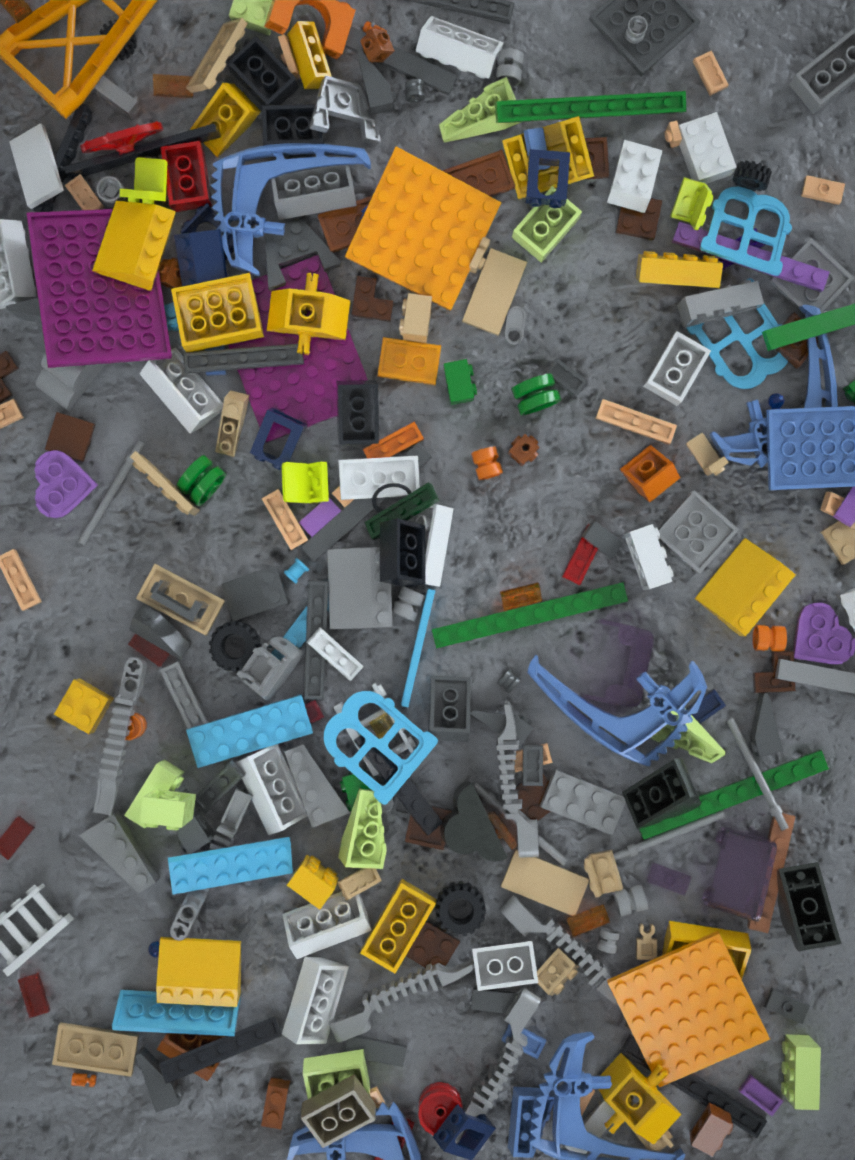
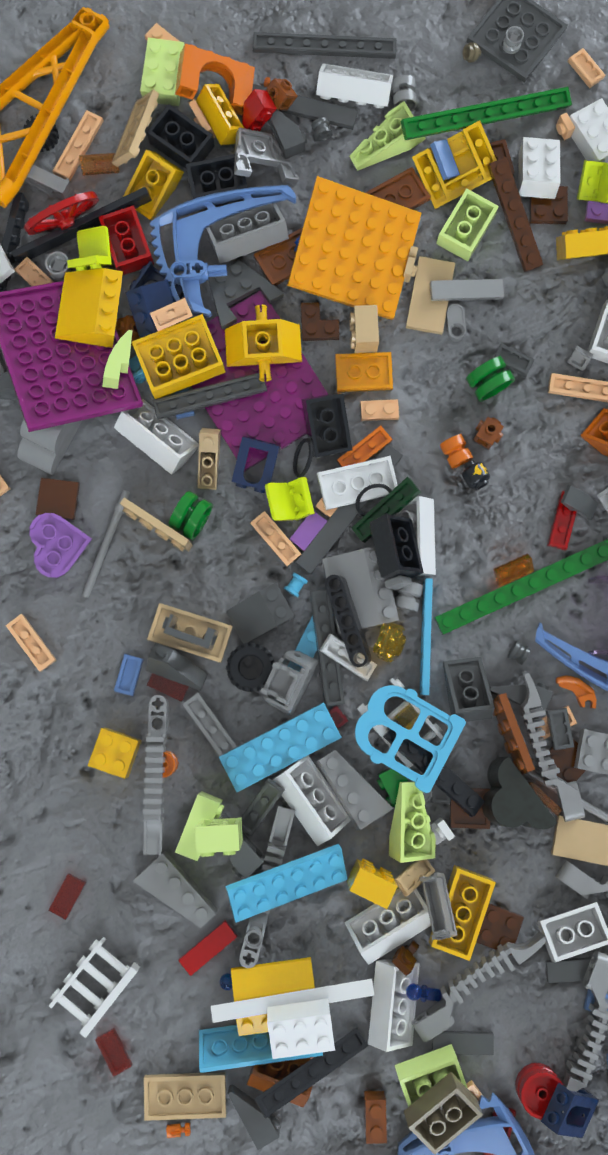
camera: 10 degrees left, 5 degrees down
(111, 630) = (128, 675): none -> medium blue tile
(143, 913) = (207, 948): none -> red tile
(153, 307) = (118, 361): none -> yellowish green slope
(154, 60) = (78, 145): none -> light nougat tile
(216, 268) = (171, 314): none -> light nougat plate
(216, 1006) = (300, 1028): none -> white brick
(222, 979) = (259, 1006): none -> white sticker
(332, 444) = (309, 457): none -> black tyre
(332, 959) = (404, 957): none -> reddish brown plate
(337, 993) = (425, 993): none -> clear blue axle
(346, 625) = (355, 627): none -> black beam
(349, 59) = (257, 110): none -> red slope
(371, 650) = (390, 642): none -> clear yellow plate
(374, 916) = (439, 906): none -> light grey container
(394, 843) = (441, 831): none -> white bracket
(398, 589) = (398, 582): none -> light grey tile
(417, 404) = (379, 410): none -> light nougat plate
(459, 381) = (415, 382): green brick -> none
(466, 924) = (530, 895): black tyre -> none
(480, 754) = (510, 730): none -> dark orange plate
(502, 491) = (476, 475): none -> black head
(532, 293) = (466, 290): none -> light grey tile
(548, 158) = (460, 163): dark blue panel -> none
(563, 728) = (581, 690): none -> orange piece
(591, 33) = (471, 52): none -> dark tan plate
(599, 222) = (515, 214): none -> reddish brown plate
(635, 388) = (580, 358): none -> light grey tile

